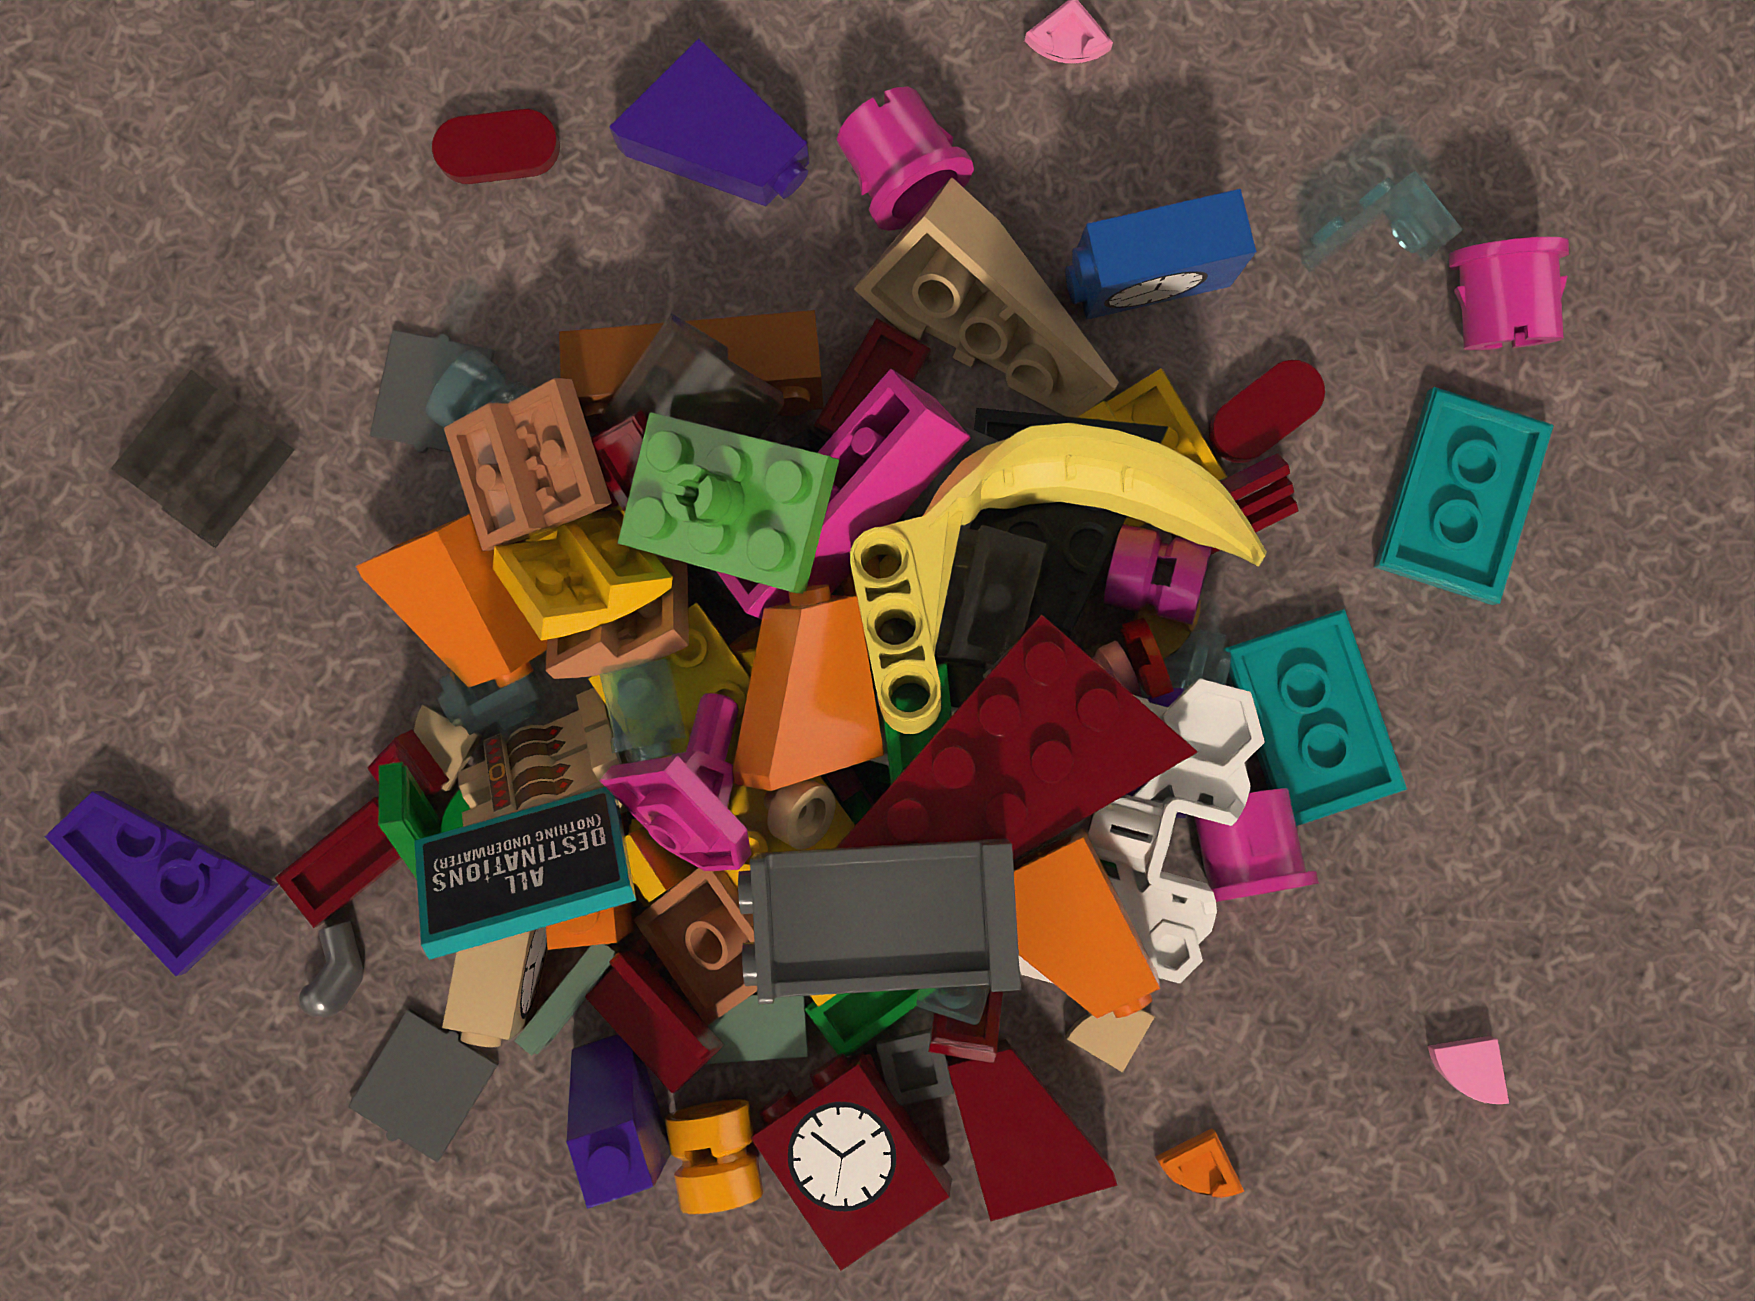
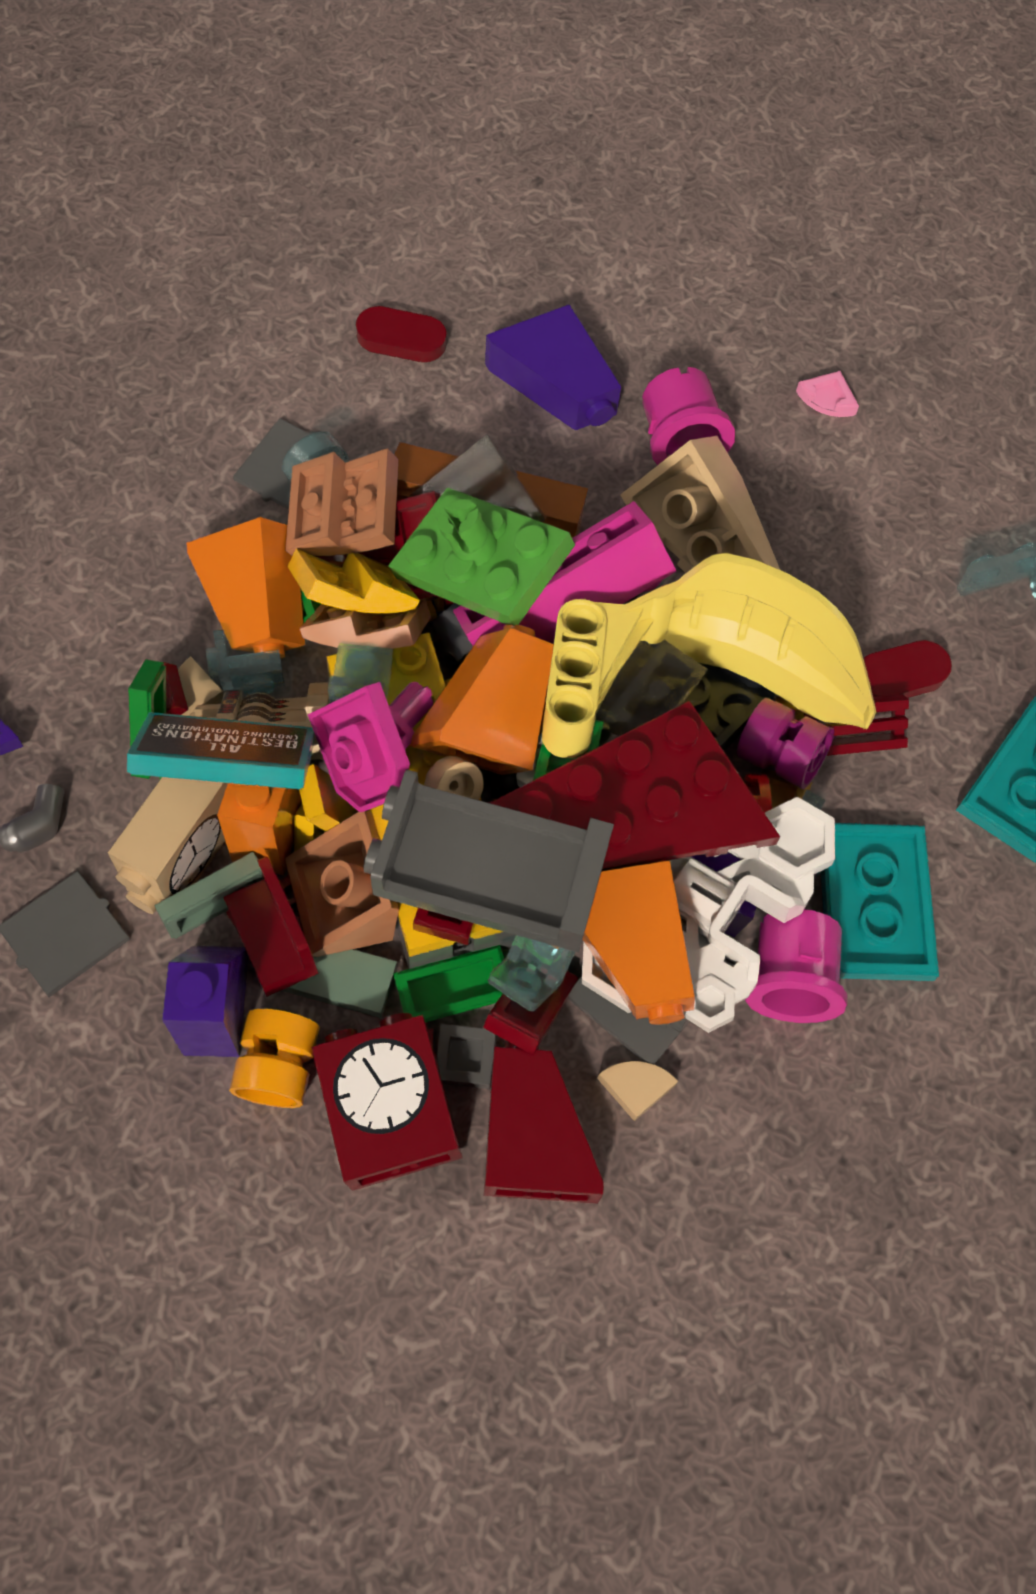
camera: 15 degrees right, 20 degrees down
(203, 458) = (108, 450): clear smoke slope -> none
(339, 866) = (79, 748): dark red tile -> none
(1160, 254) = (852, 532): blue brick -> none
(1201, 1166) = (678, 1224): orange tile -> none
(1472, 1068) = (936, 1222): bright pink tile -> none

